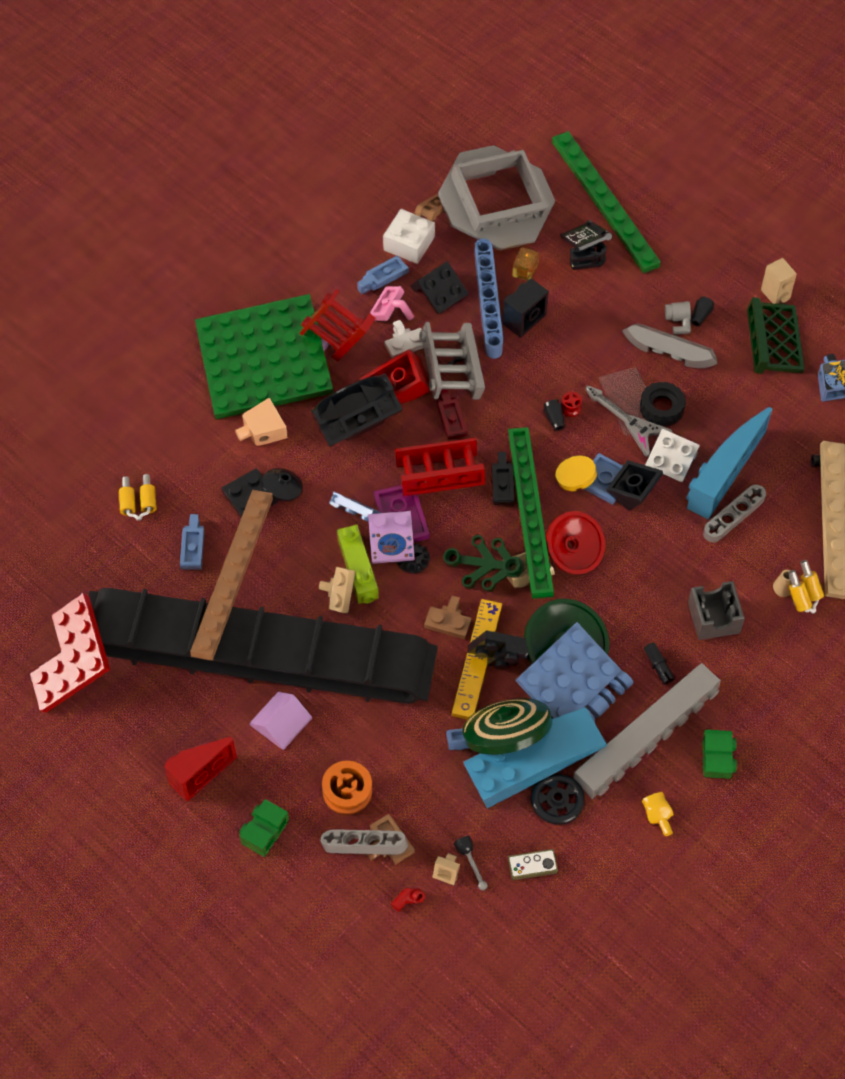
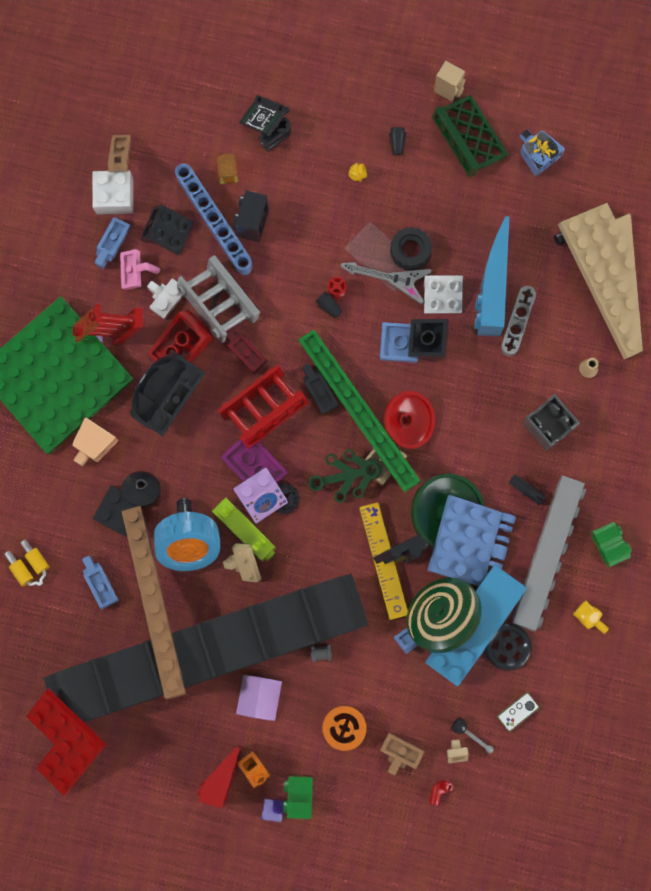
camera: 25 degrees left, 20 degrees up
(229, 827) = (272, 810): none -> slope
(234, 776) = (253, 769): none -> orange brick
(296, 539) = (186, 539): none -> dark azure wheel
(352, 506) = (214, 479): hinge -> none
(365, 708) = (321, 653): none -> dark grey bush
(390, 842) = (383, 766): light grey beam -> none
(448, 619) = (343, 539): medium nougat hinge -> none
(503, 228) = (193, 142): light grey hinge -> none
(576, 473) = (375, 352): yellow tile -> none
(606, 202) = (260, 68): green plate -> none
(648, 319) = (357, 172): none -> yellow plate
(679, 312) = (379, 152): light grey piece -> none
(694, 354) = (389, 187): light grey brick -> none
(806, 590) = (613, 363): yellow piece -> none

